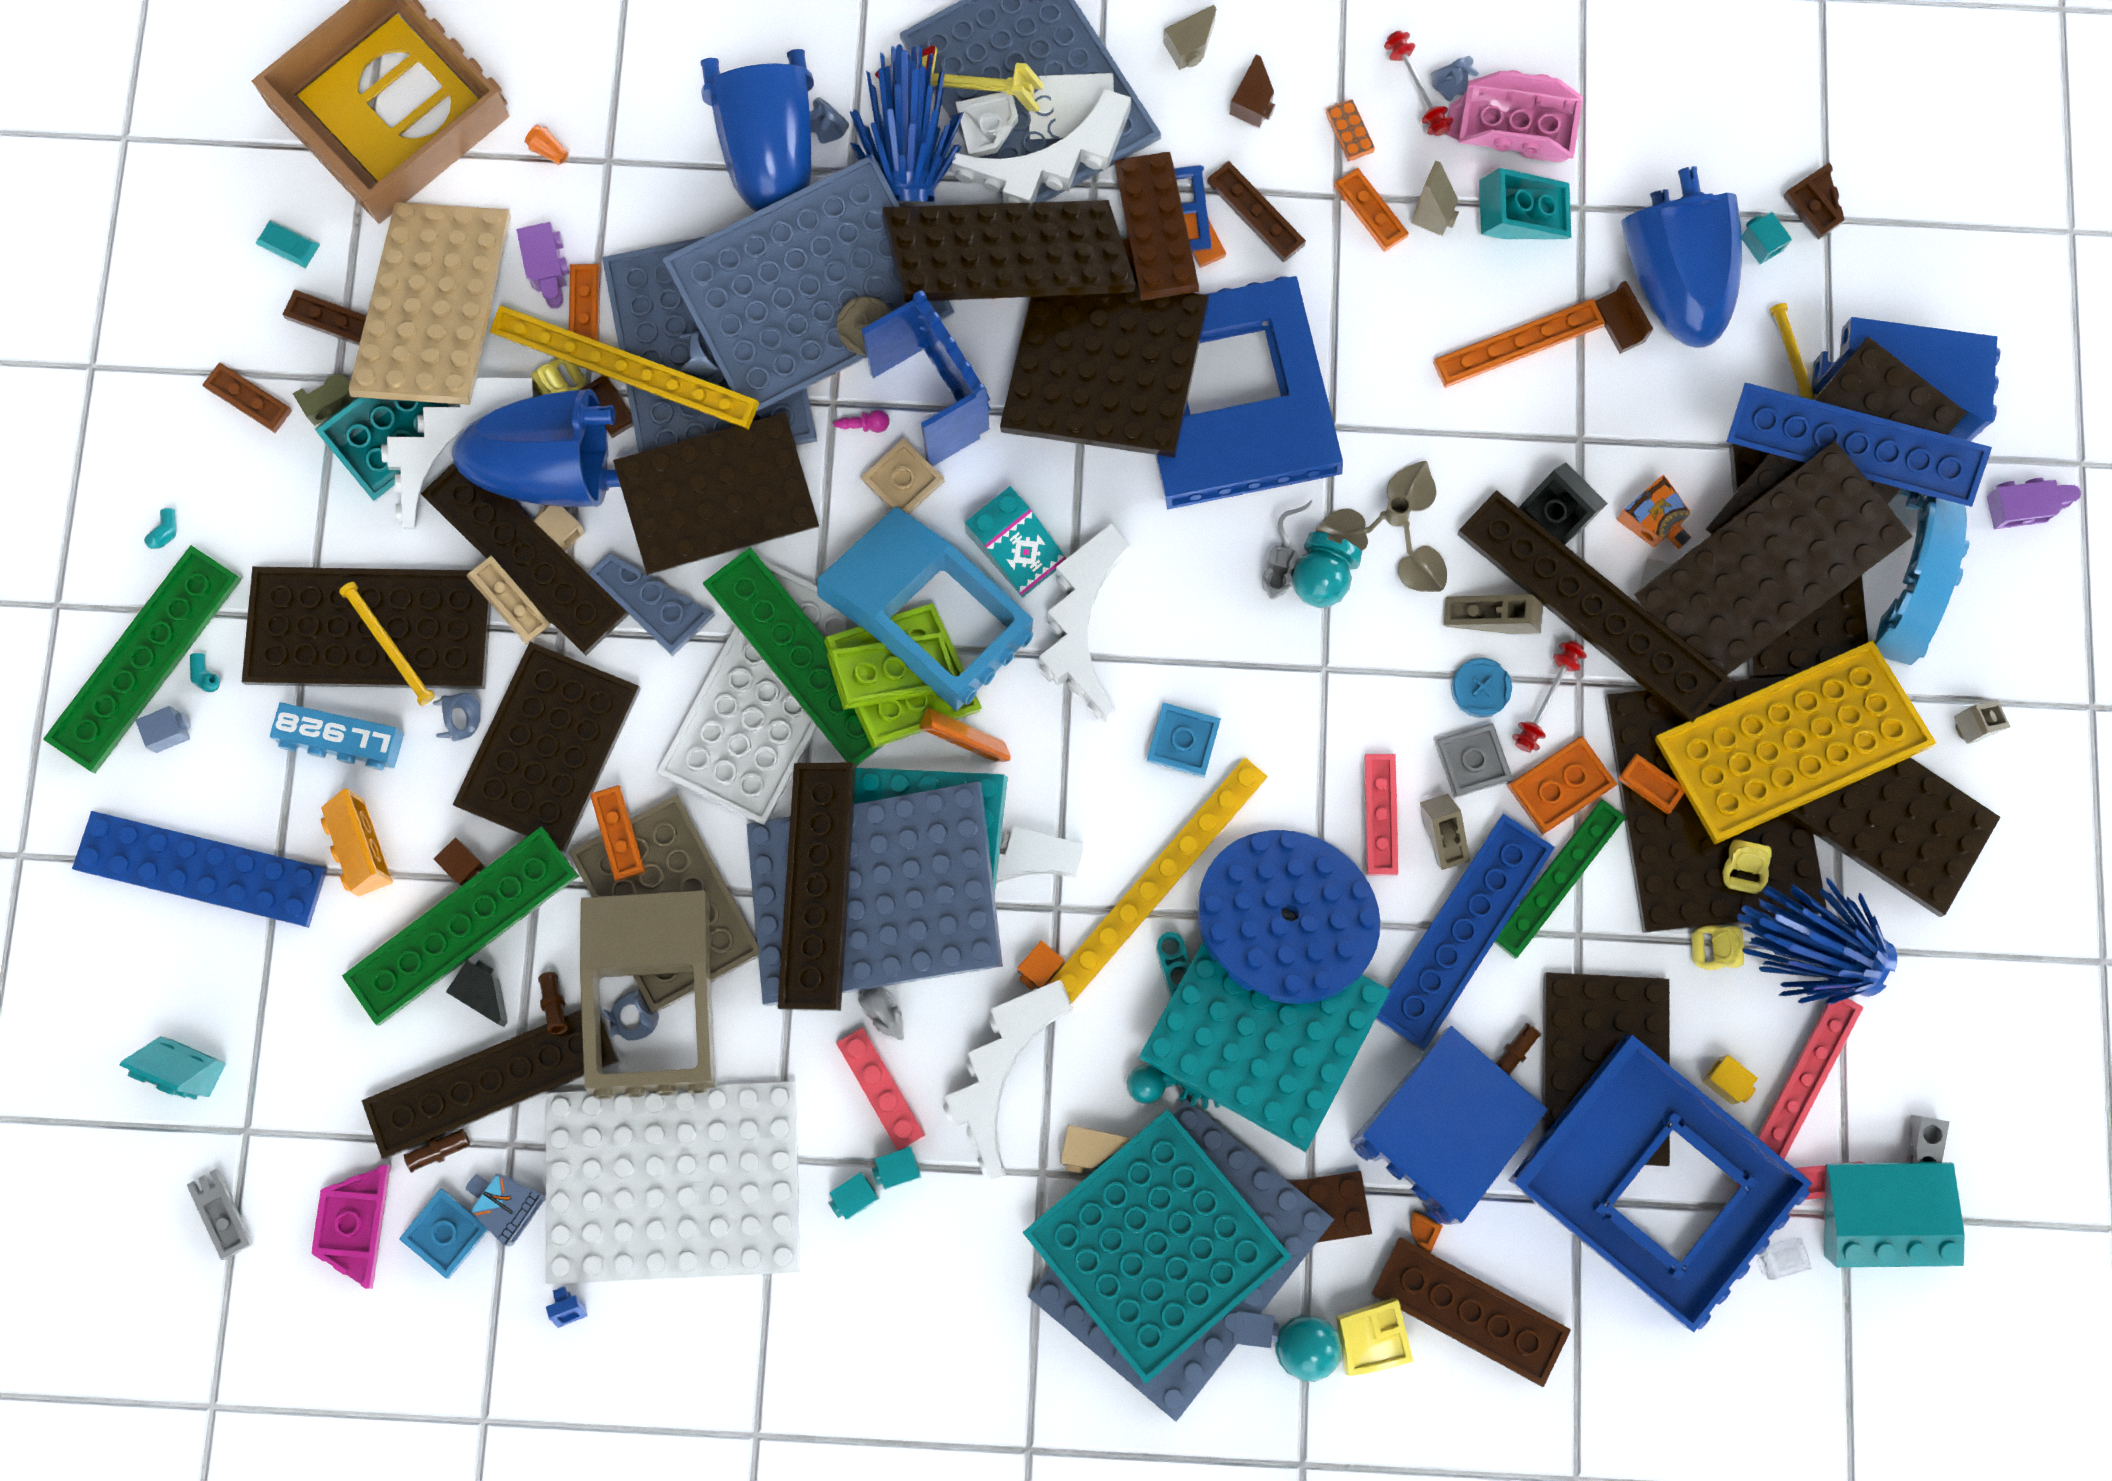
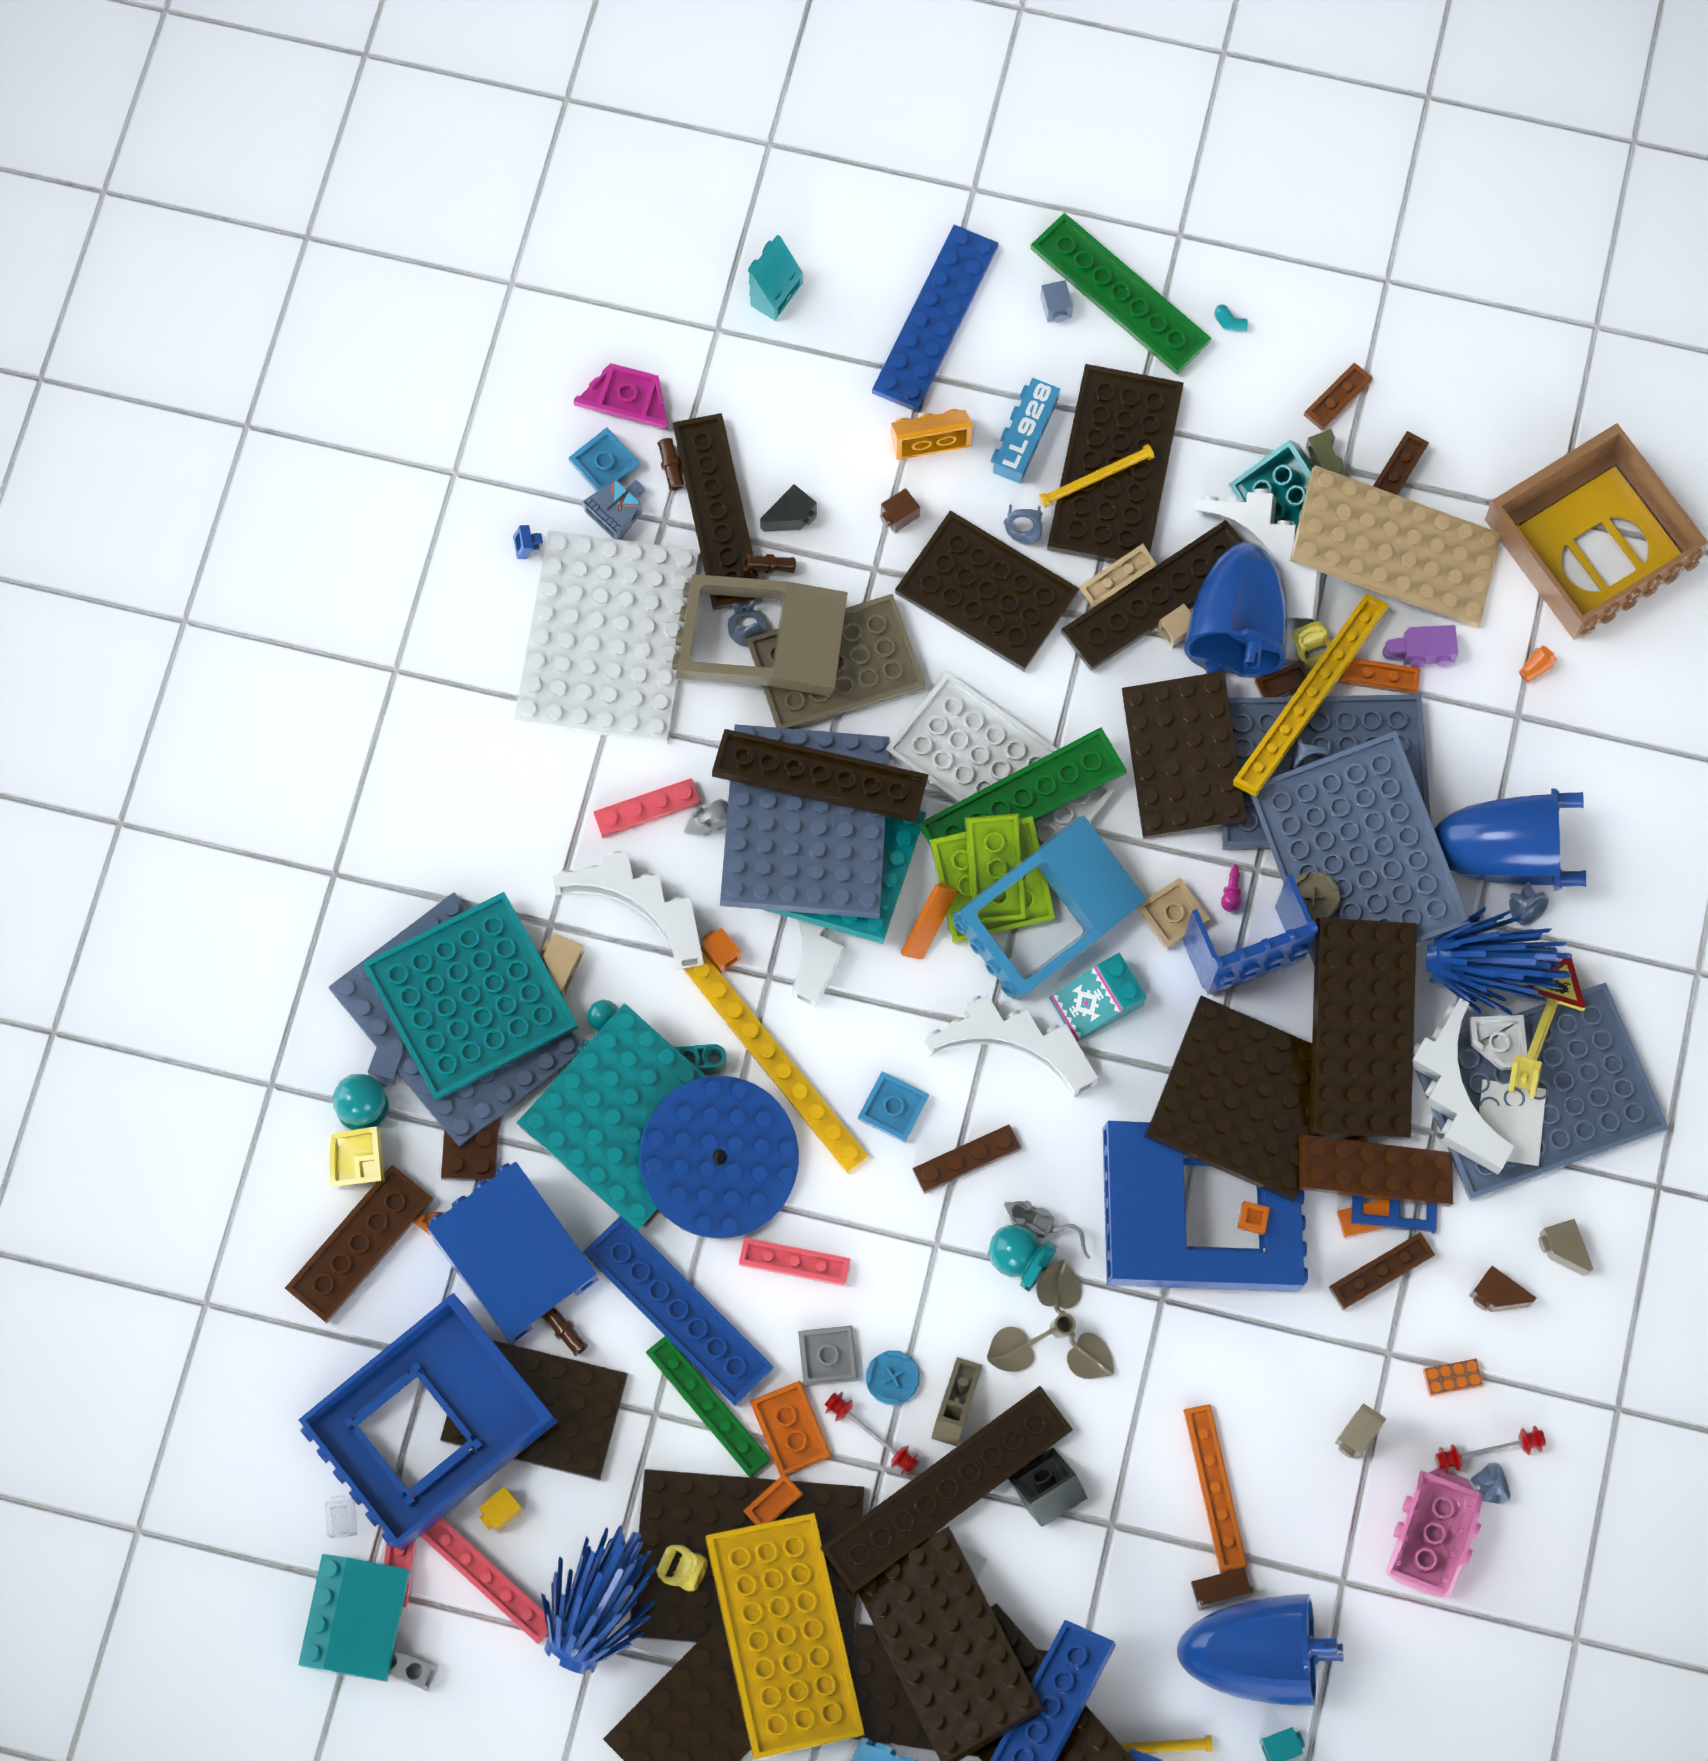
camera: 100 degrees right, 5 degrees down
(200, 676) = (1097, 335): teal arm -> none
(220, 1215) = (655, 302): light grey hinge -> none
(287, 244) = (1476, 444): teal tile -> none
(460, 926) = (847, 504): green plate -> none
(617, 833) = (900, 632): orange tile -> none
(655, 607) = (1093, 692): sand blue wing -> none
(853, 1197) = (563, 770): teal brick -> none
(896, 1168) = (578, 807): teal brick -> none
(1224, 653) = (966, 1158): none -> reddish brown plate
(1238, 334) = (1253, 1217): none -> orange tile
(1371, 209) = (1369, 1380): orange tile -> none
(1446, 831) = (768, 1312): dark tan arch -> none
(1524, 206) = (1348, 1523): teal slope -> none
(1657, 515) = (1023, 1573): torso -> none
(1726, 945) = (621, 1514): light yellow piece -> none

